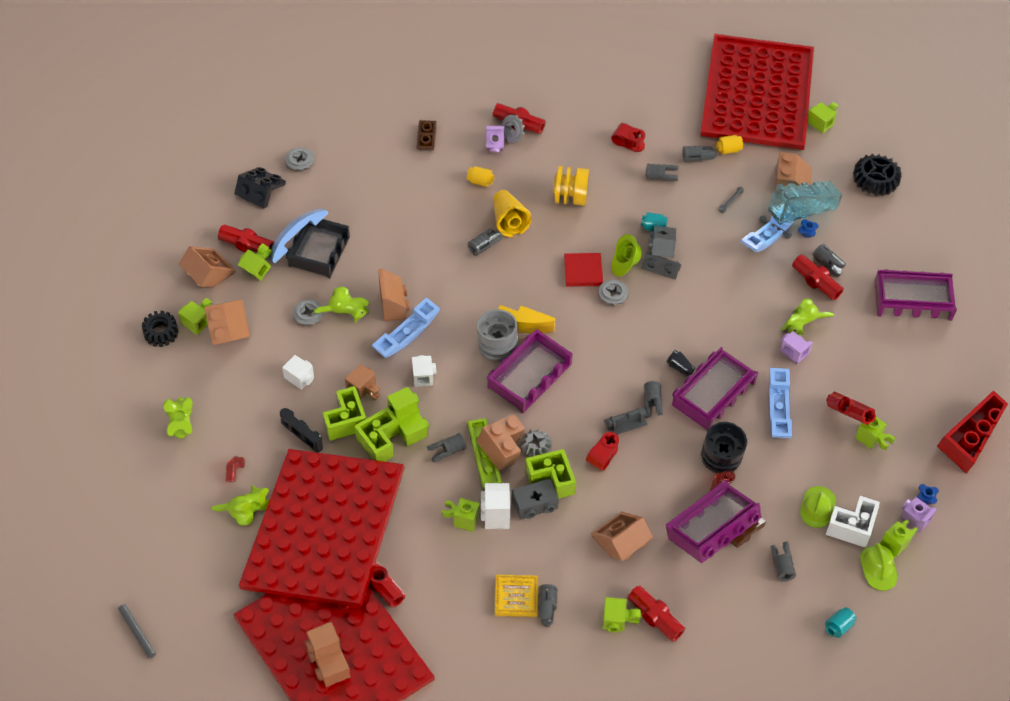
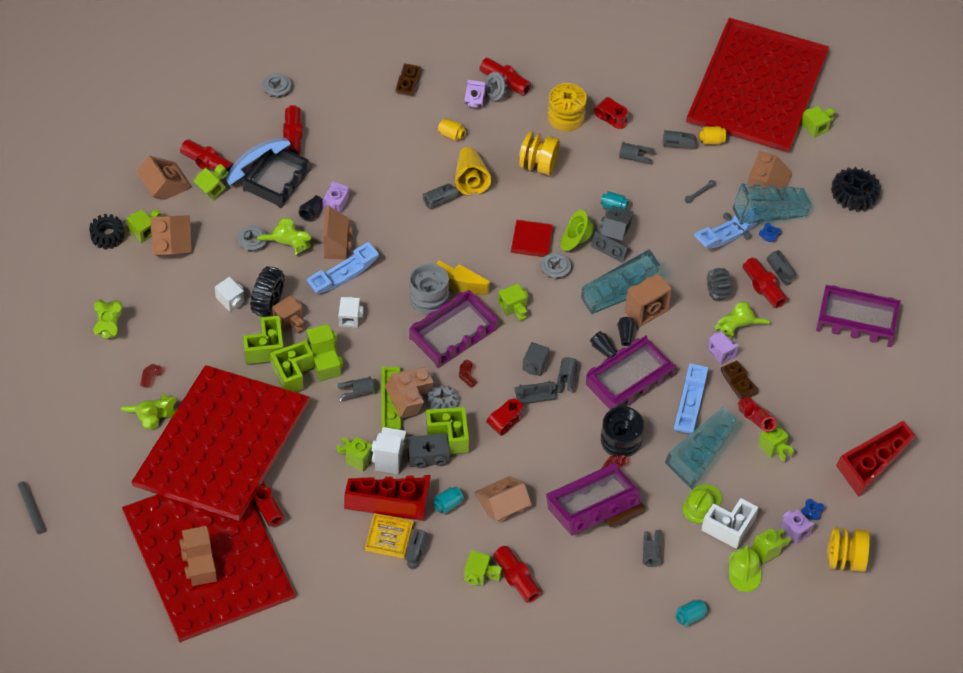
camera: 10 degrees right, 0 degrees up
(257, 186) = (228, 105): black bracket -> none
(301, 430) = (220, 349): black hinge -> none
(325, 197) = (293, 128): none -> red piece
(336, 363) = (267, 291): none -> black gear
(359, 274) = (310, 208): none -> black cone
(383, 258) = (336, 196): none -> lavender brick
(508, 554) = (389, 496): none -> red wedge
(551, 414) = (465, 373): none -> clear red arm
(567, 547) = (448, 500): none -> teal brick
(582, 333) = (513, 300): none -> lime brick
(586, 138) = (567, 107): none -> yellow wheel
(618, 388) = (535, 359): none -> dark grey brick
(683, 299) = (613, 286): none -> clear light blue wedge
(698, 343) = (626, 330): none -> black cone
(713, 311) = (648, 300): none -> nougat brick
(776, 285) = (719, 284): none -> dark grey gear
(802, 455) = (698, 450): none -> clear light blue wedge
(818, 376) = (737, 379): none -> reddish brown slope
(978, 529) = (849, 549): none -> yellow wheel

